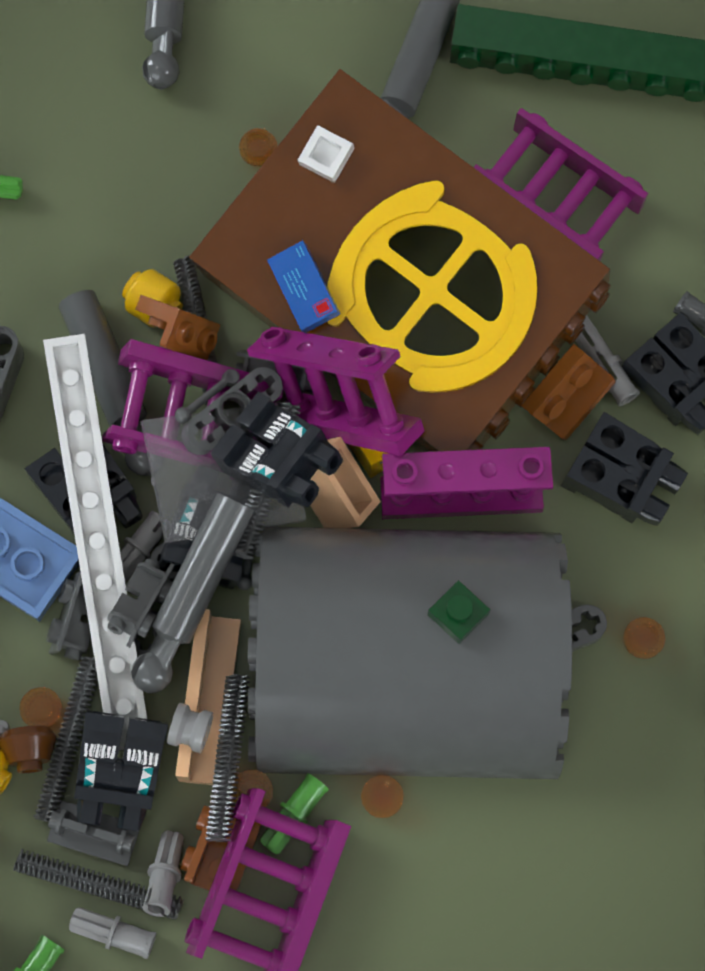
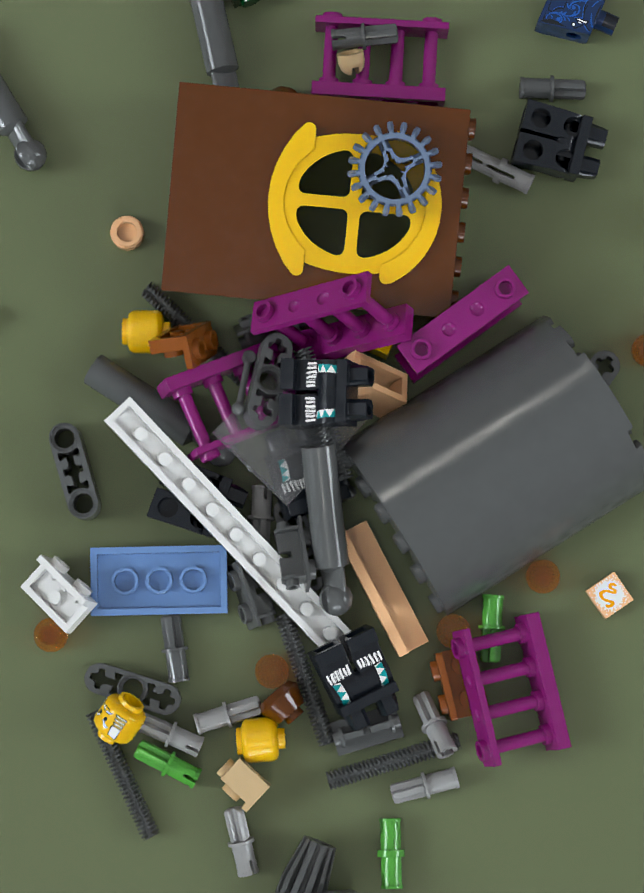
camera: 30 degrees left, 10 degrees up
(190, 728) = (391, 620): light grey wheel -> none
(201, 199) = (127, 233): none -> light nougat tile
(227, 758) = (424, 621): dark grey axle -> none
(257, 146) = (141, 167): clear orange plate -> none
(303, 287) = (261, 261): blue tile -> none
(326, 154) = (212, 153): white tile -> none
(438, 862) = (609, 595): none -> tile
(458, 612) = (526, 425): dark green plate -> none
(512, 278) = (423, 156): none -> sand blue gear
(528, 167) = (351, 59): none -> tan hinge
(554, 154) = (364, 36): none -> dark grey axle
(569, 392) = (489, 209): dark orange bracket -> none
(622, 470) = (560, 241): black hips -> none

